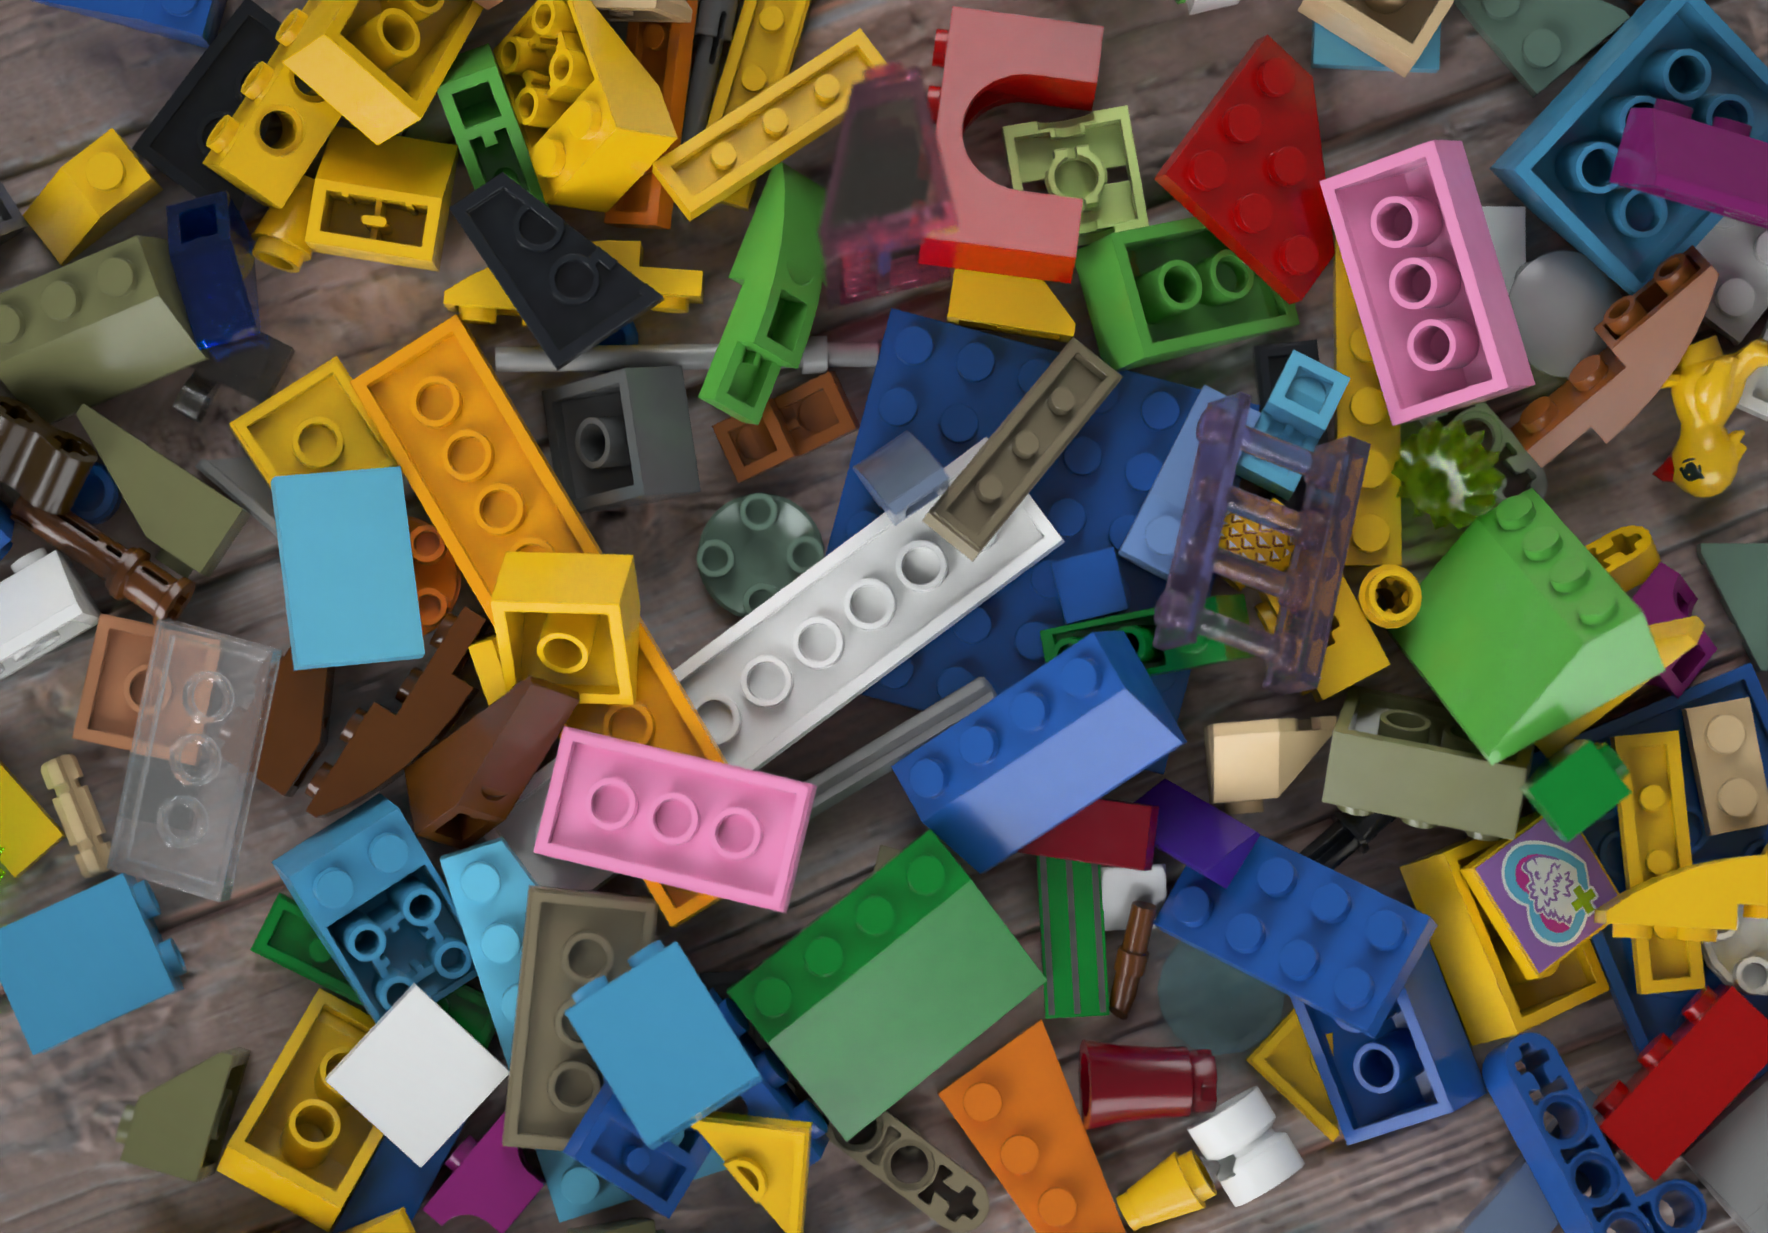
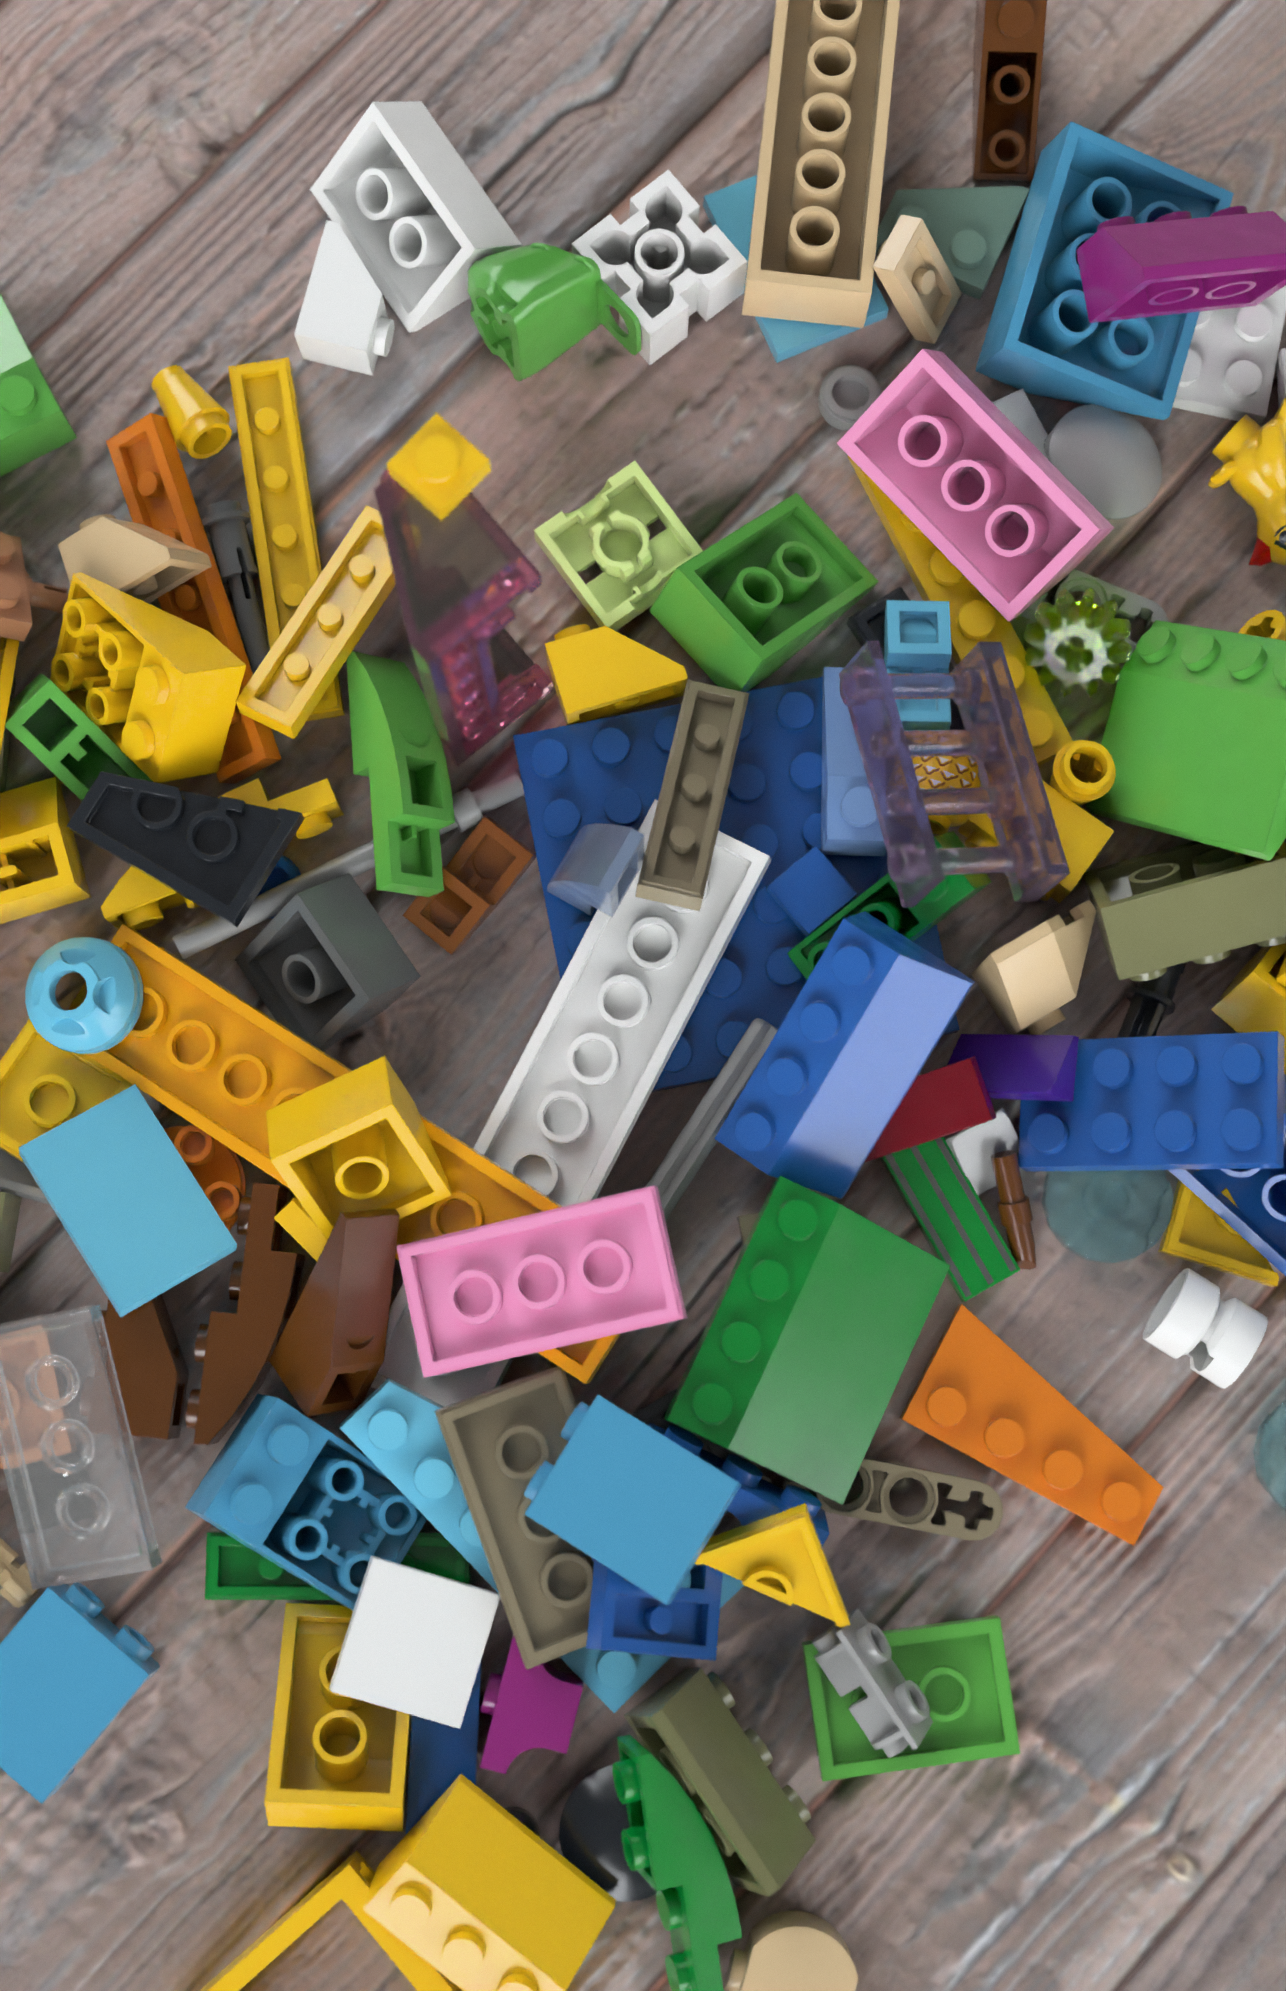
camera: 25 degrees left, 5 degrees down
(186, 1119) = (216, 1795): olive slope -> none
(417, 379) = (111, 999): none -> medium azure piece
(756, 550) = (495, 1006): sand green dish -> none
(915, 92) = (438, 466): none -> yellow plate
(992, 63) = (577, 607): arch -> none
(1143, 1082) = (1083, 1316): dark red plant -> none
(1167, 1191) = (1153, 1405): yellow cone -> none
(1256, 171) = (777, 465): red plate -> none
(1360, 134) = (847, 395): none -> light grey tile
(1473, 60) = (917, 278): none -> tan plate
(1644, 345) = (1191, 453): dark orange slope -> none

